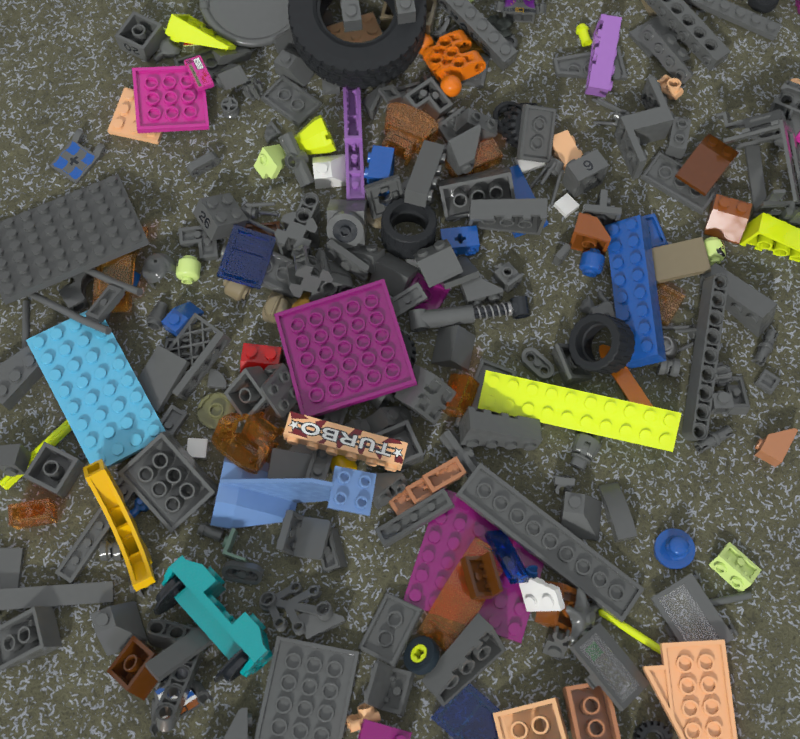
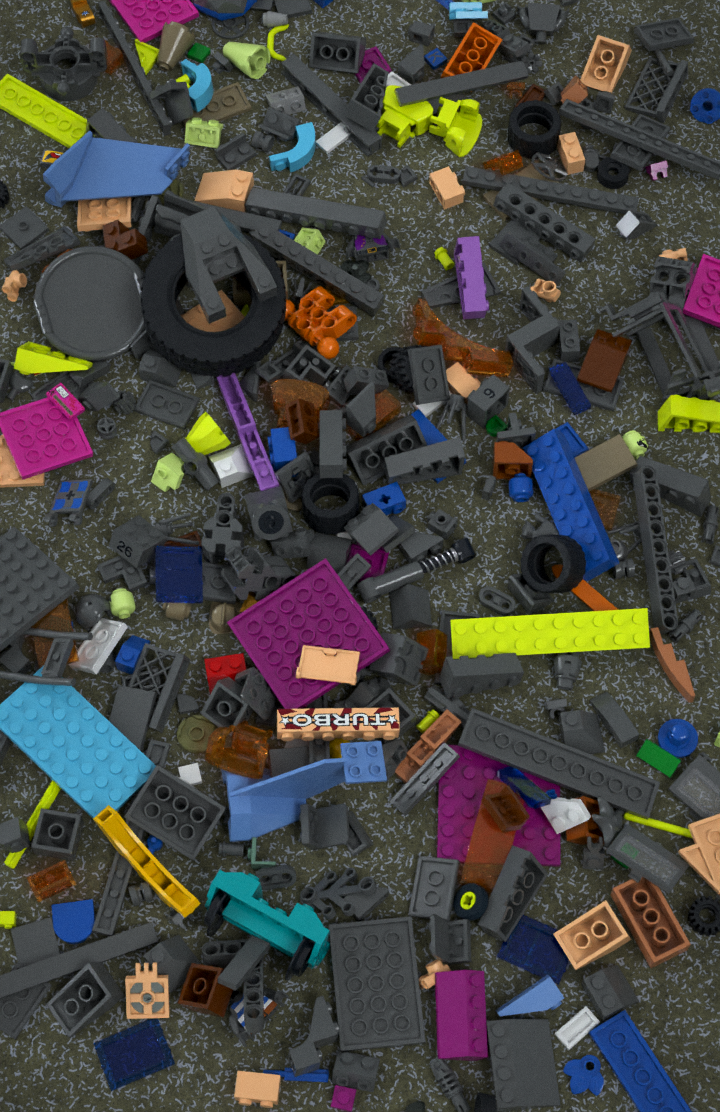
camera: 15 degrees left, 5 degrees down
(42, 557) = (73, 920): none -> blue tile
(53, 706) = (134, 1053): none -> clear blue piece
(82, 652) = (147, 993): none -> light nougat piece
(153, 302) = (95, 652): none -> white tile
(174, 164) = (69, 499): none -> dark grey flag
(347, 260) = (280, 550): dark grey hinge -> none
(347, 380) = (327, 667): none -> light nougat door
(404, 145) = (302, 421): none -> reddish brown brick
(436, 461) = (431, 717): none -> neon yellow pin
(566, 205) = (478, 437): white tile -> none
(584, 129) = (475, 357): none -> clear orange arch
(585, 197) = (495, 425): none -> green tile
(618, 112) = (503, 332): dark grey plant -> none
(650, 563) = (658, 758): none -> green tile
(666, 182) = (570, 388): none -> clear blue tile
(692, 482) = (674, 669): none -> nougat slope
(727, 218) = (639, 409): slope -> none
(771, 48) = (635, 224): none -> dark grey slope

